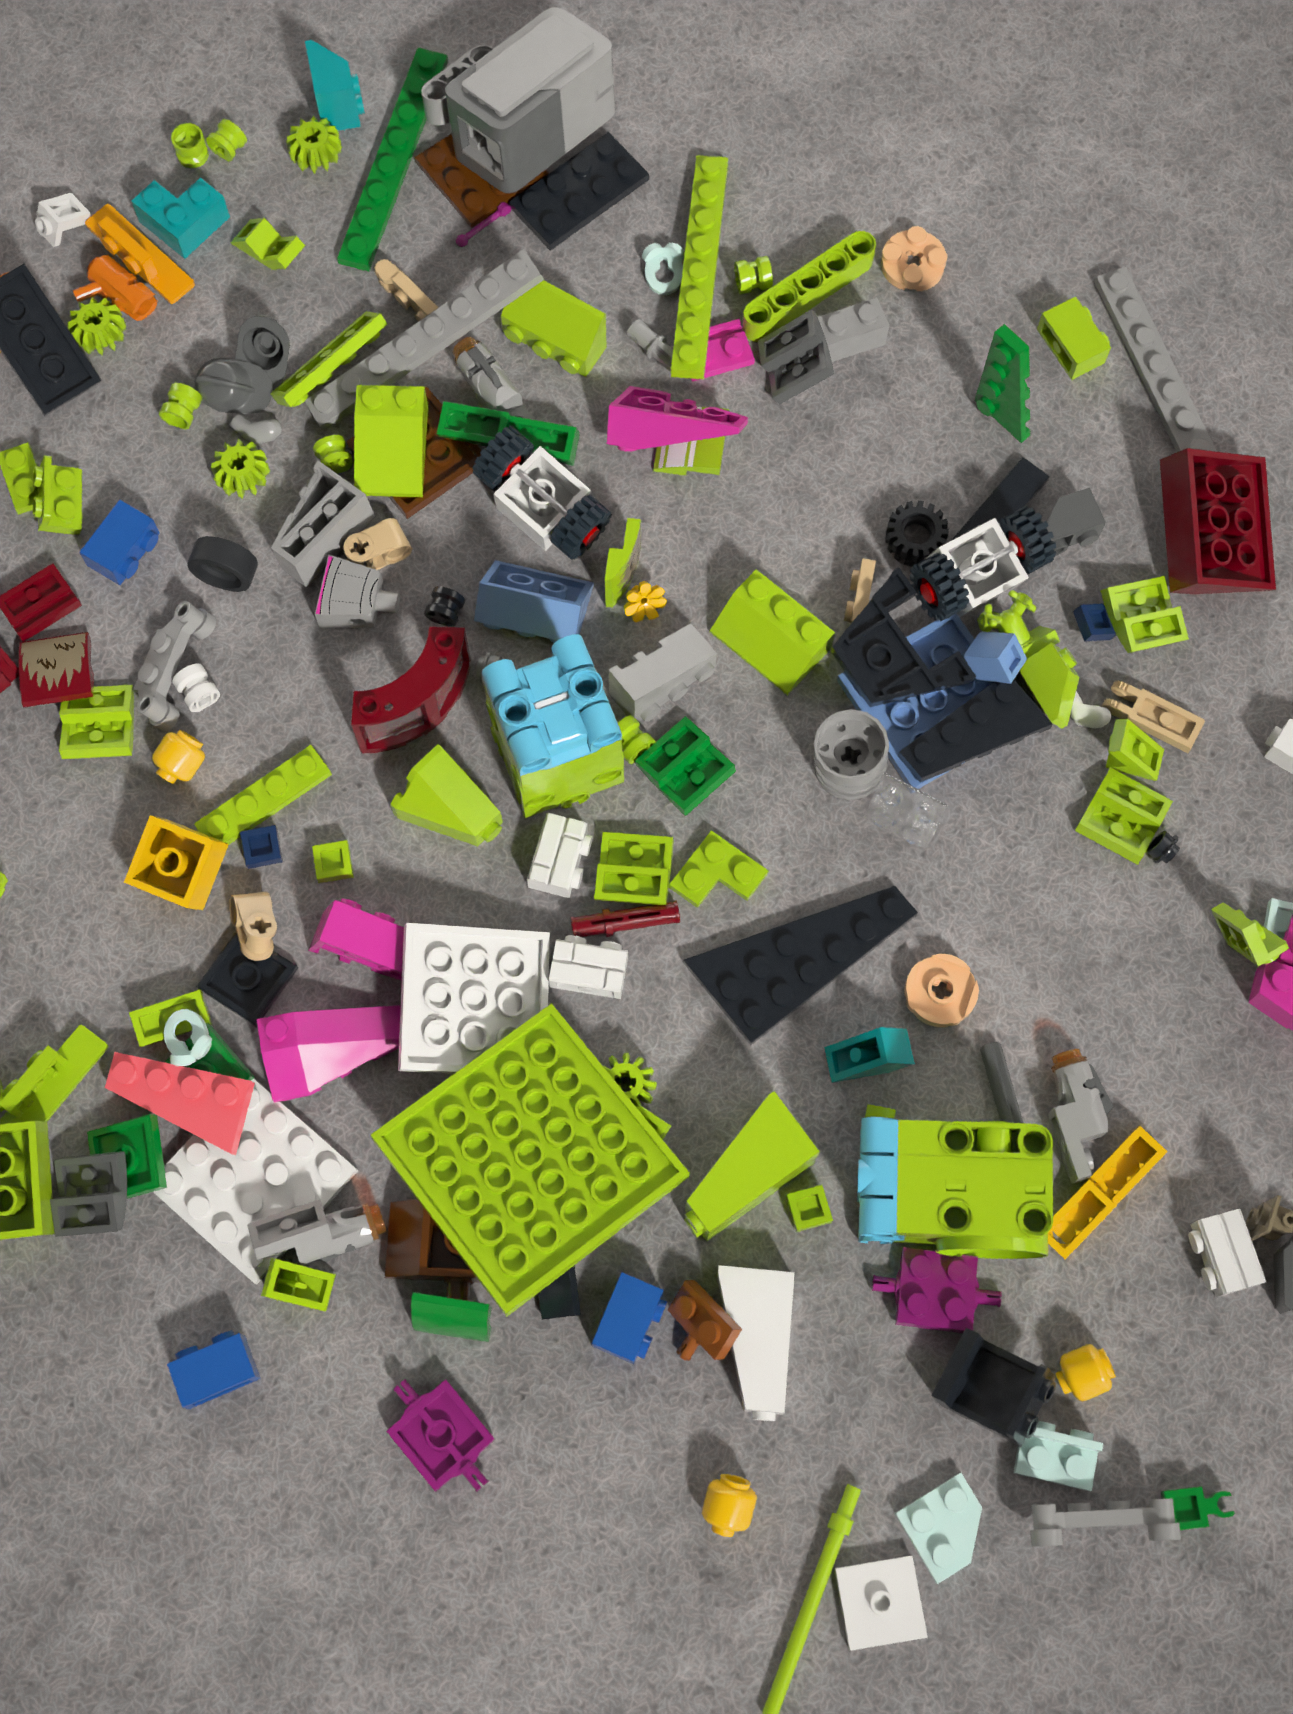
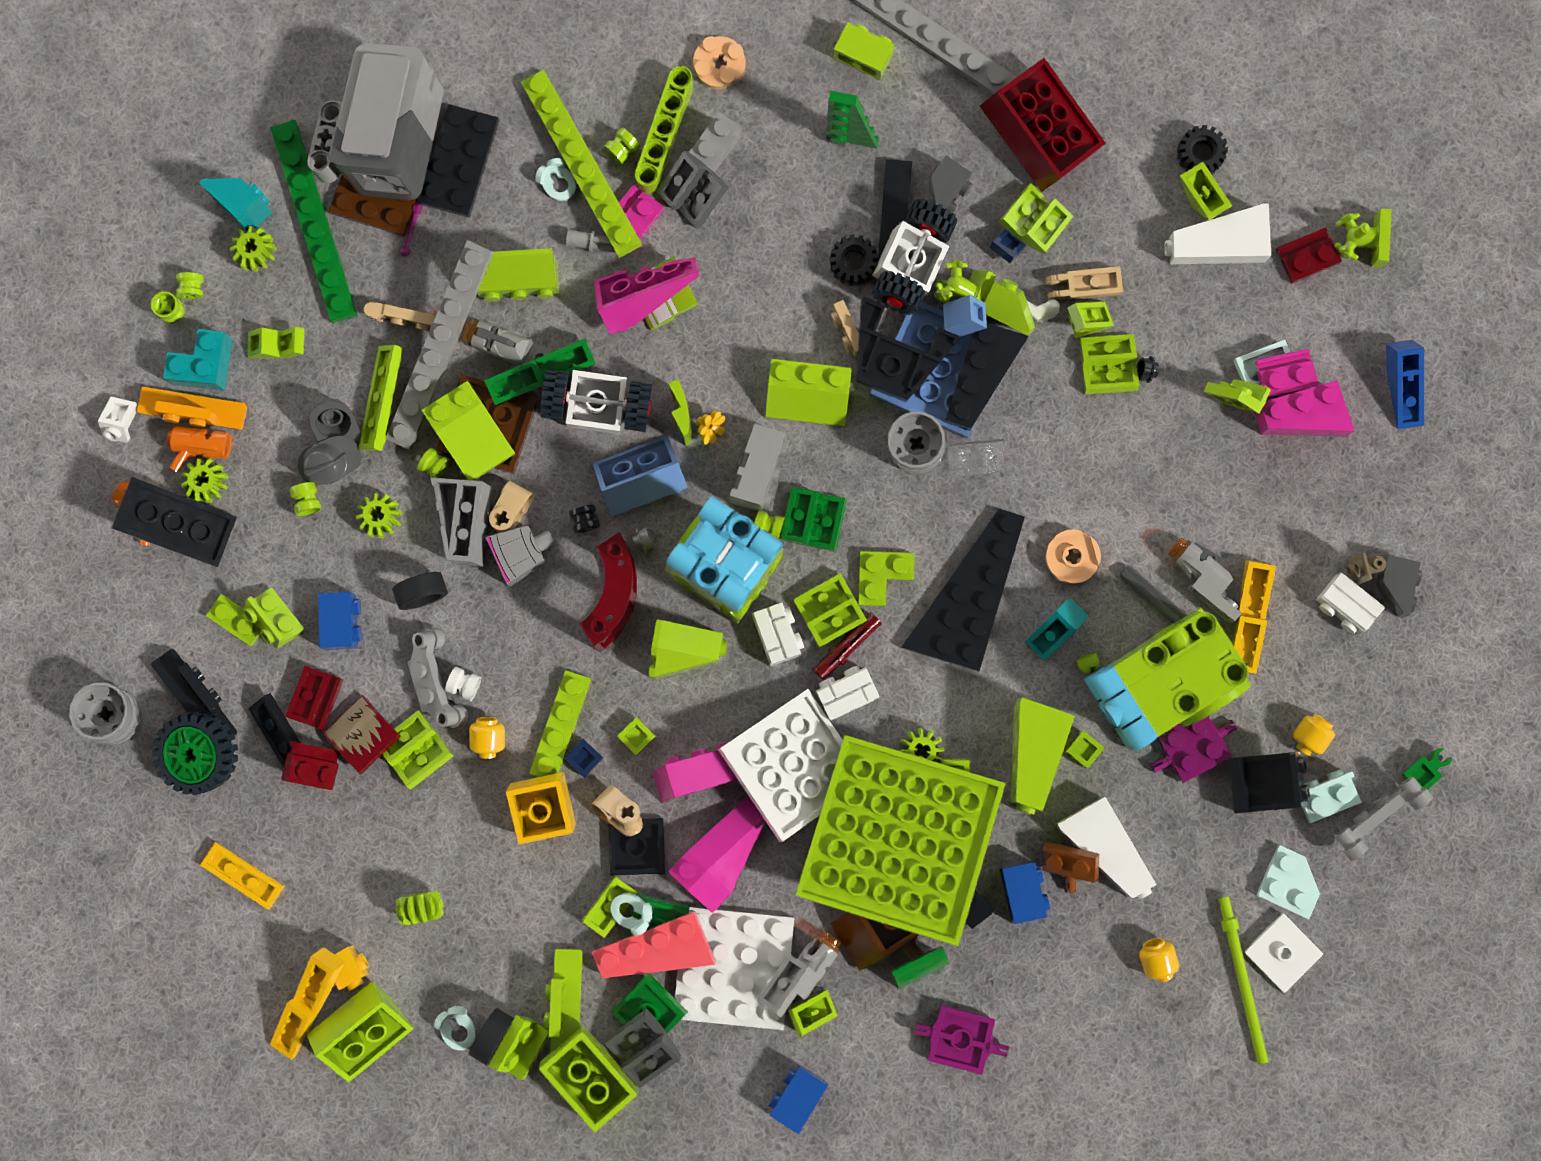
camera: 30 degrees left, 10 degrees up
(257, 432) = (370, 482): light grey arm -> none

